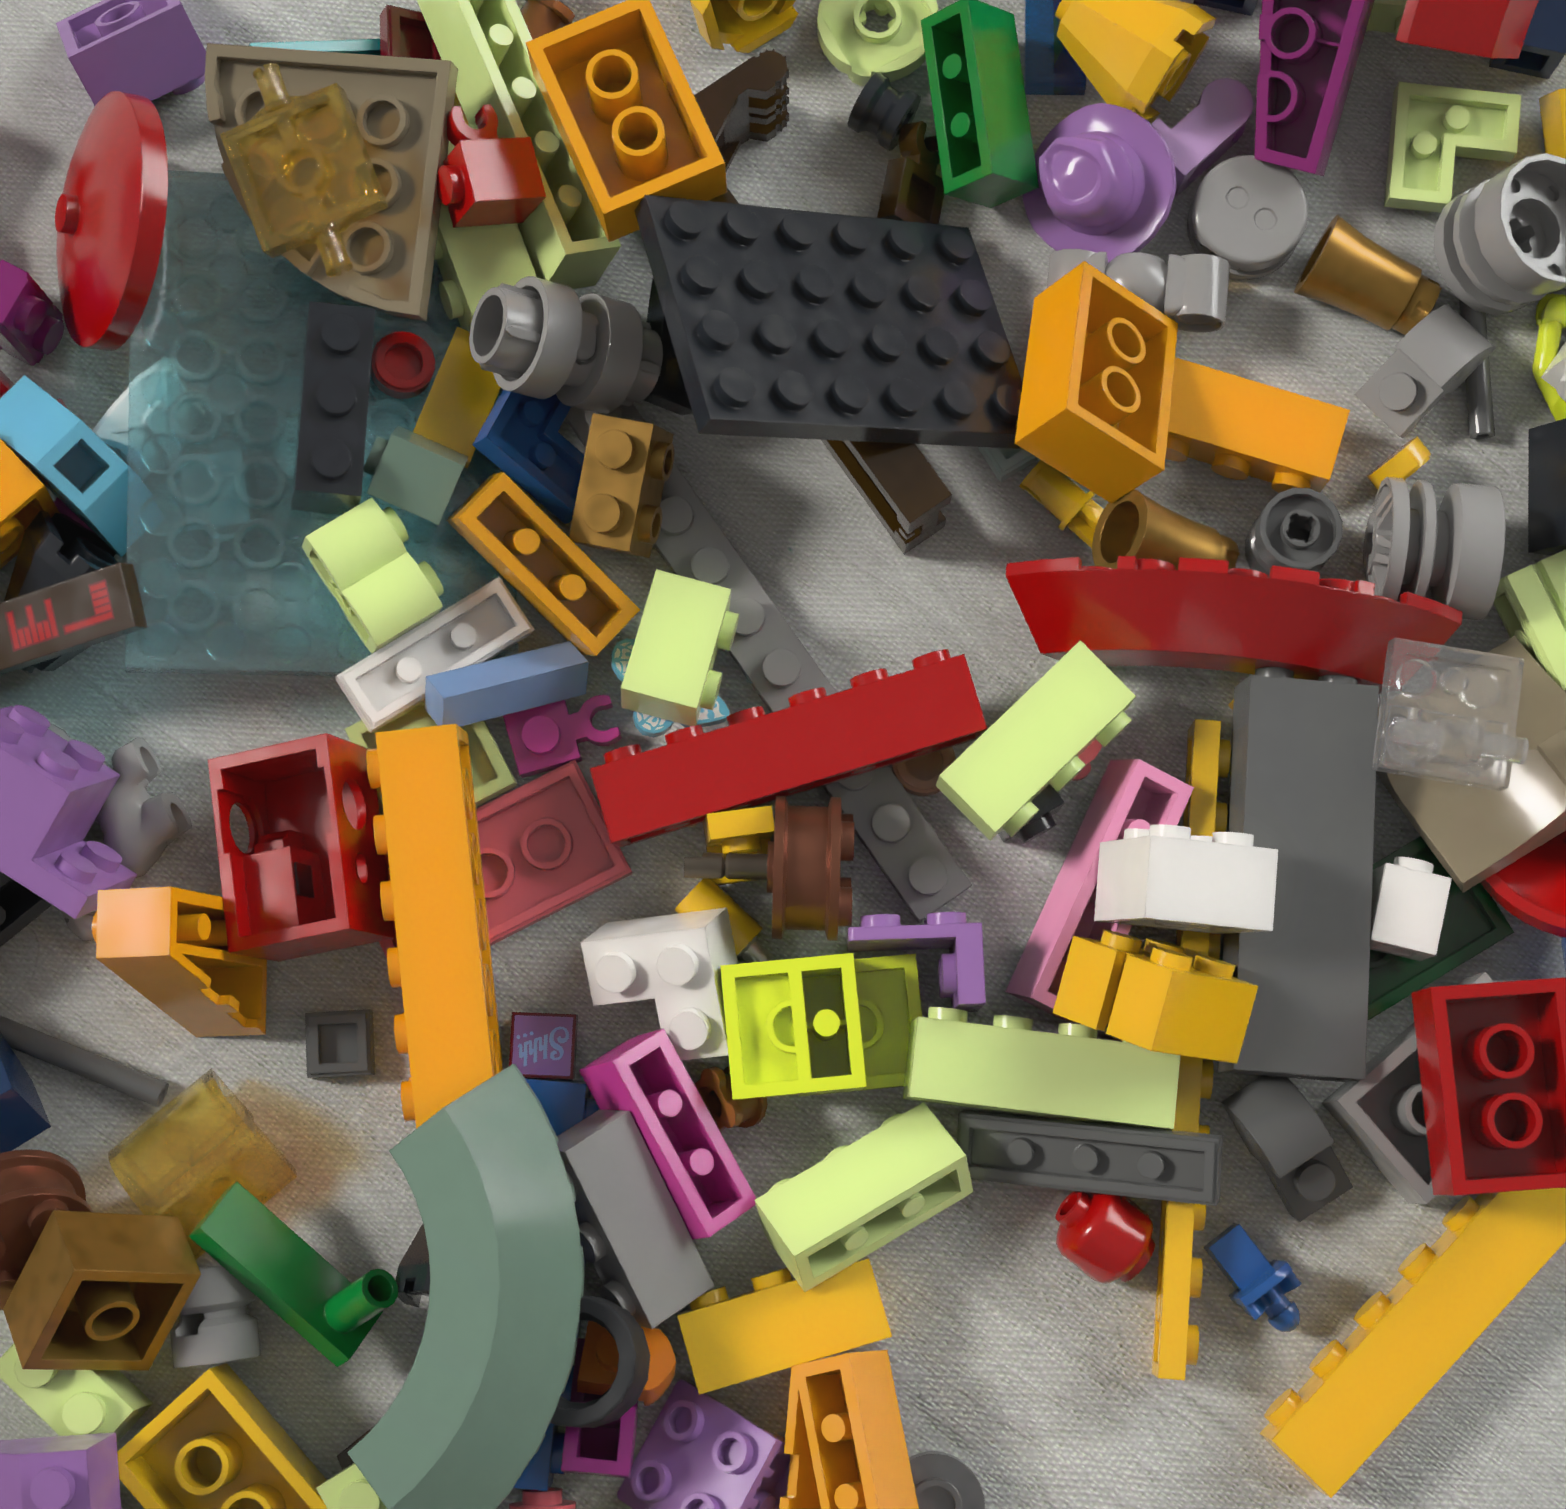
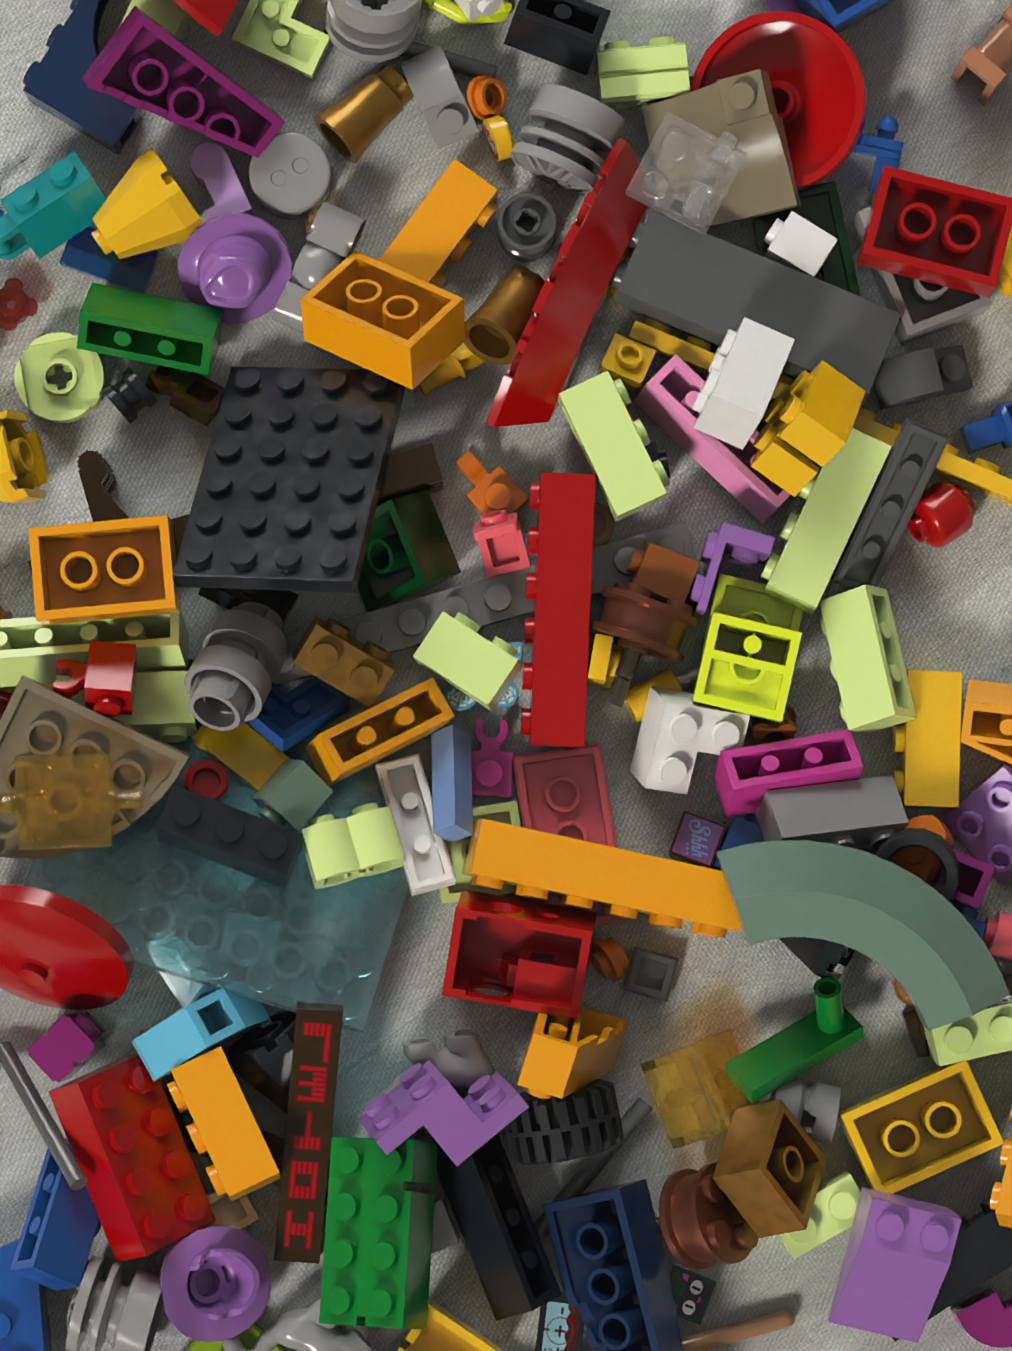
camera: 75 degrees left, 5 degrees up
(74, 997) = (566, 1127): none -> black tyre
(340, 978) = (609, 958): none -> orange plate
(801, 518) = (405, 552): none -> dark green slope
(855, 644) = (501, 543): none -> coral bracket
(889, 869) = (662, 570): none -> dark orange brick
(921, 618) = (491, 490): none -> orange plate
(1159, 729) = (627, 361): none -> yellow bracket
(1457, 438) = (486, 97): none -> orange plate

